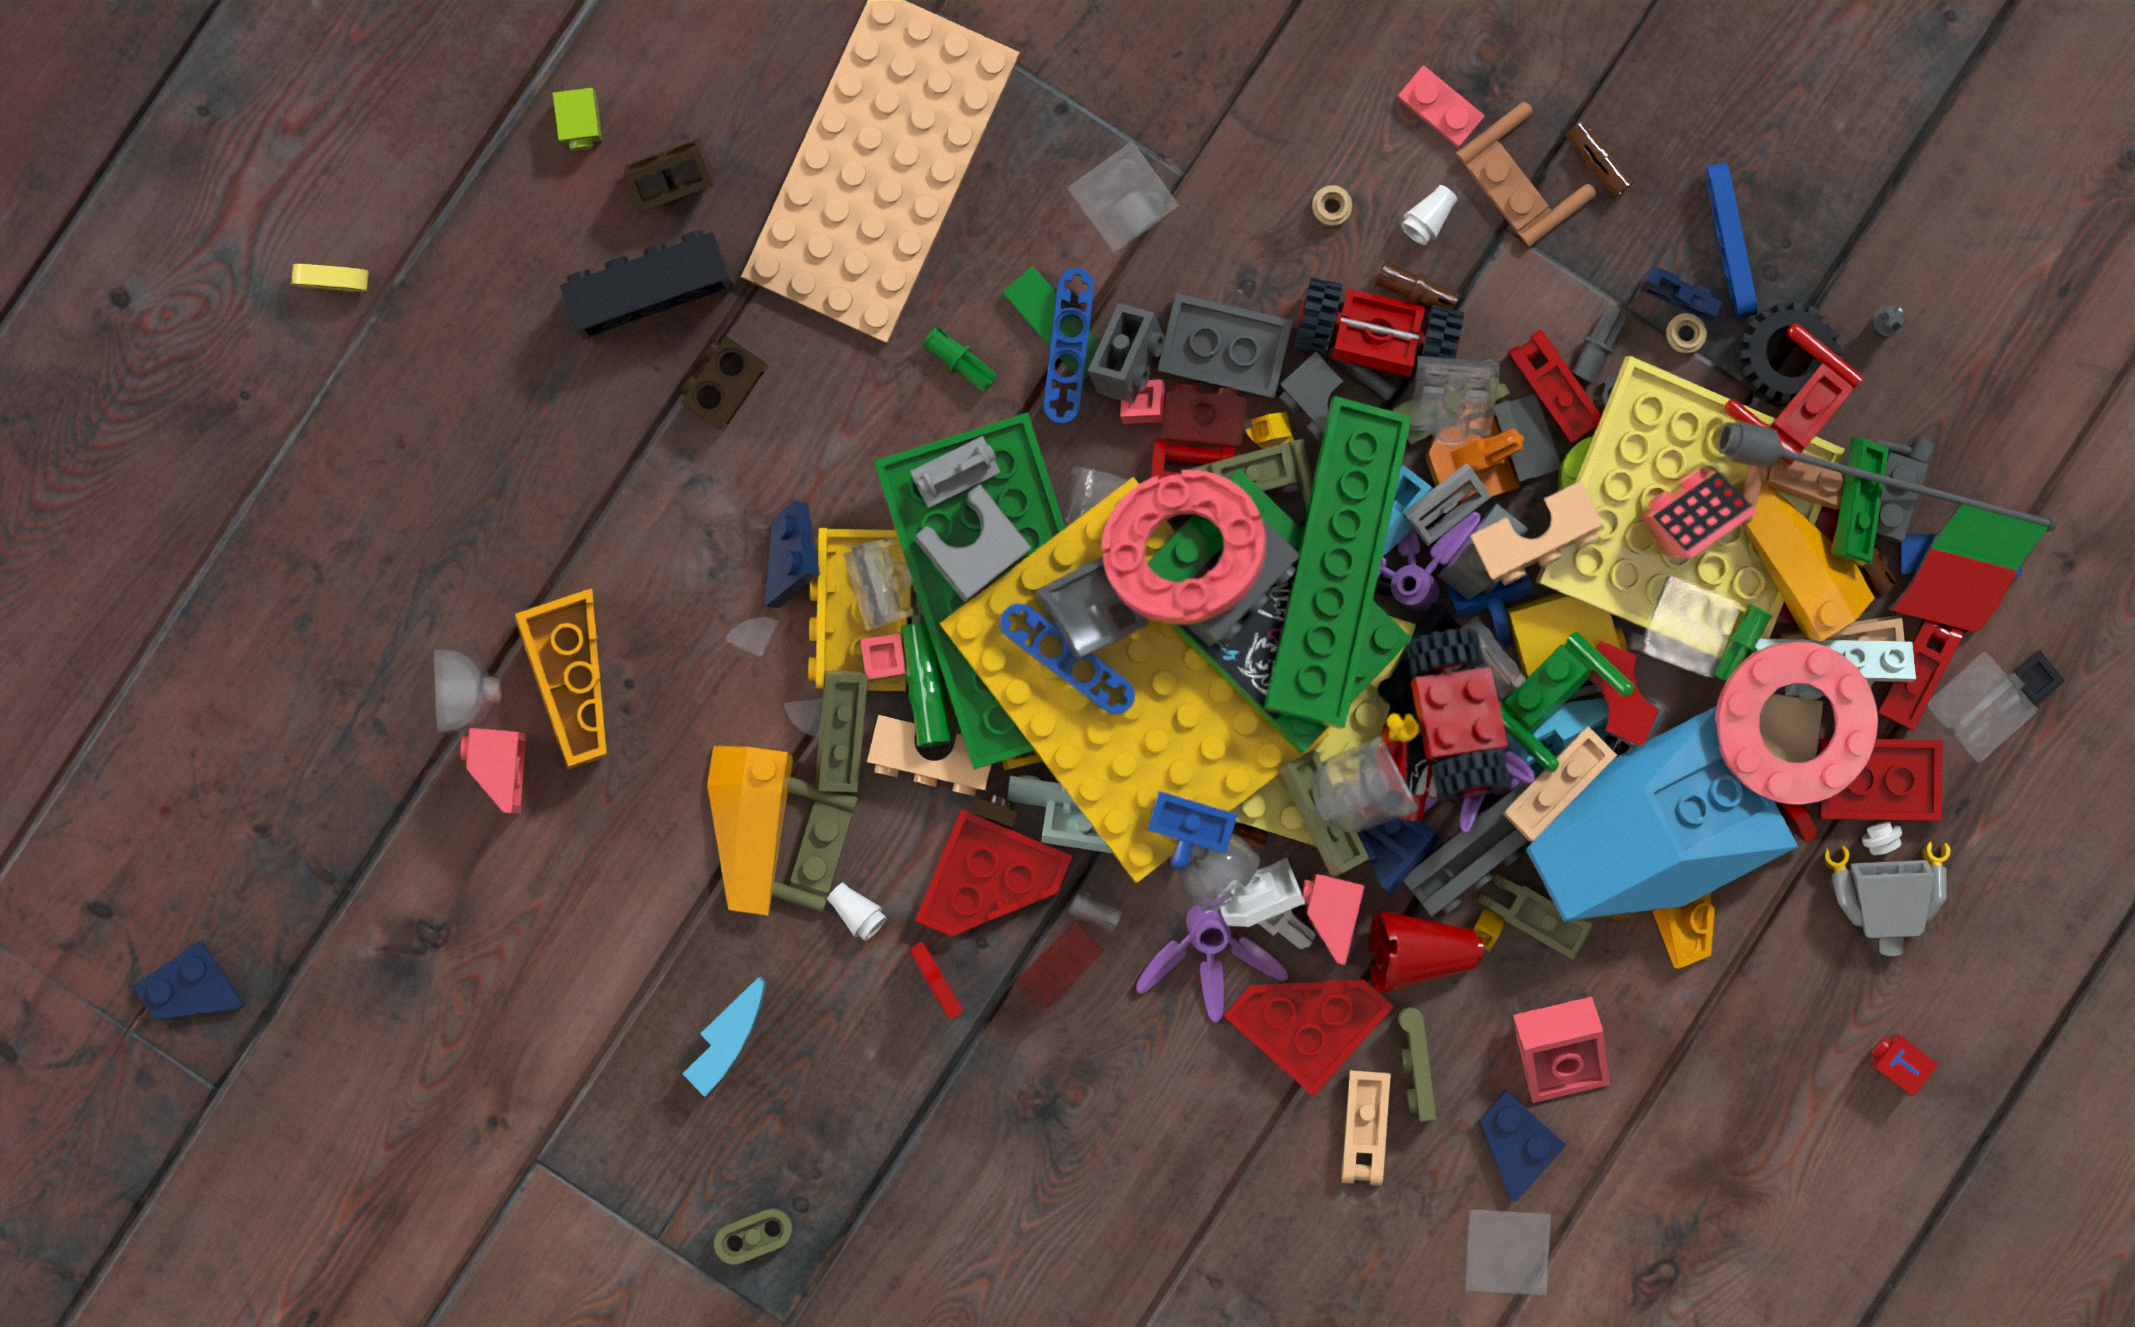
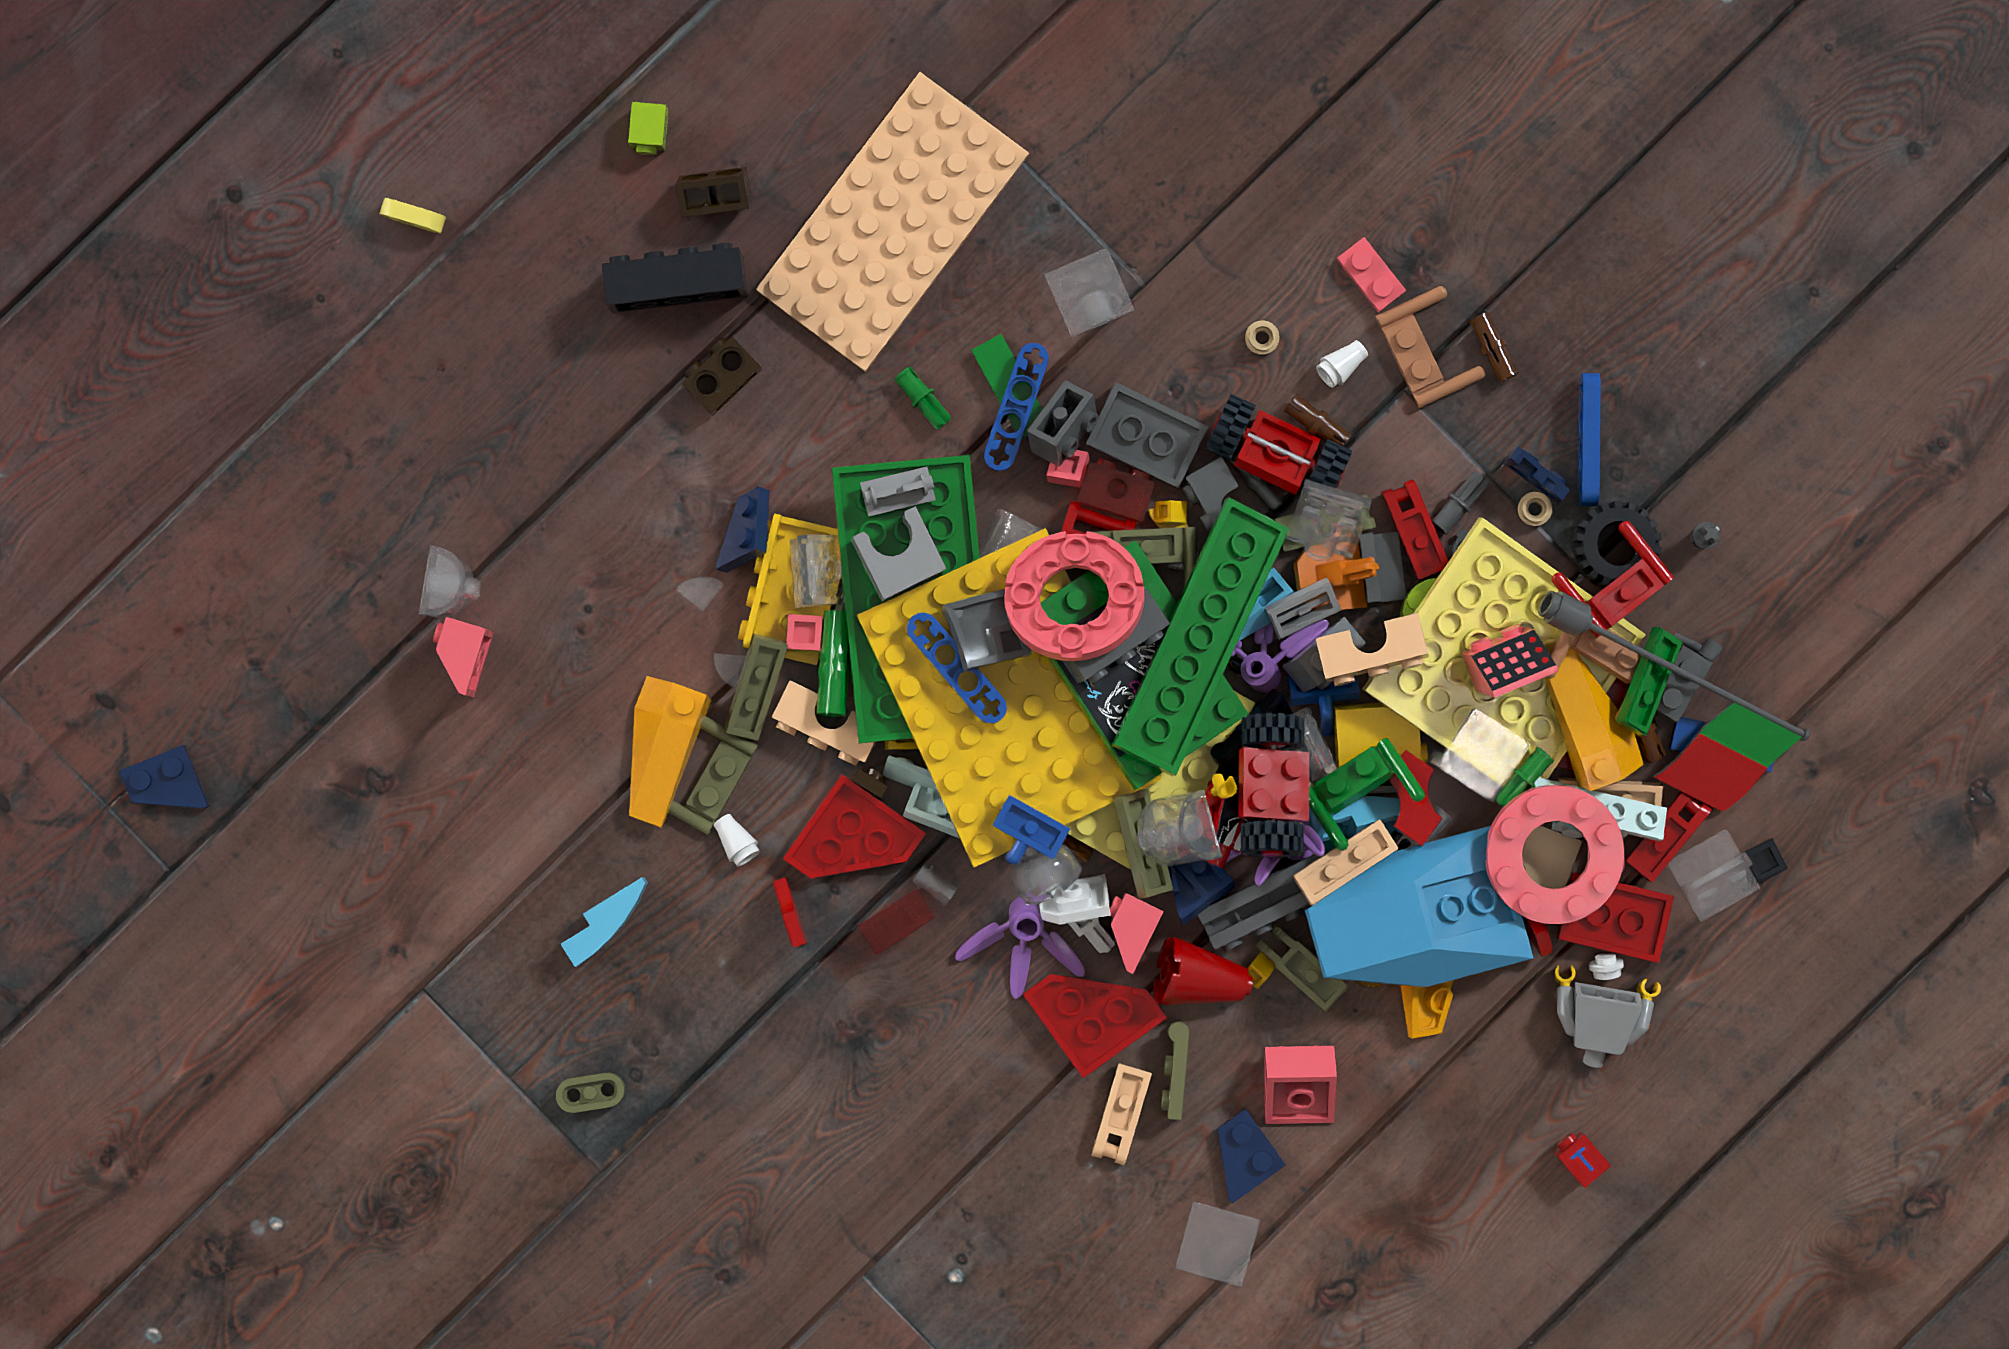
camera: 10 degrees right, 0 degrees up
(566, 668) = (538, 579): light orange wedge -> none

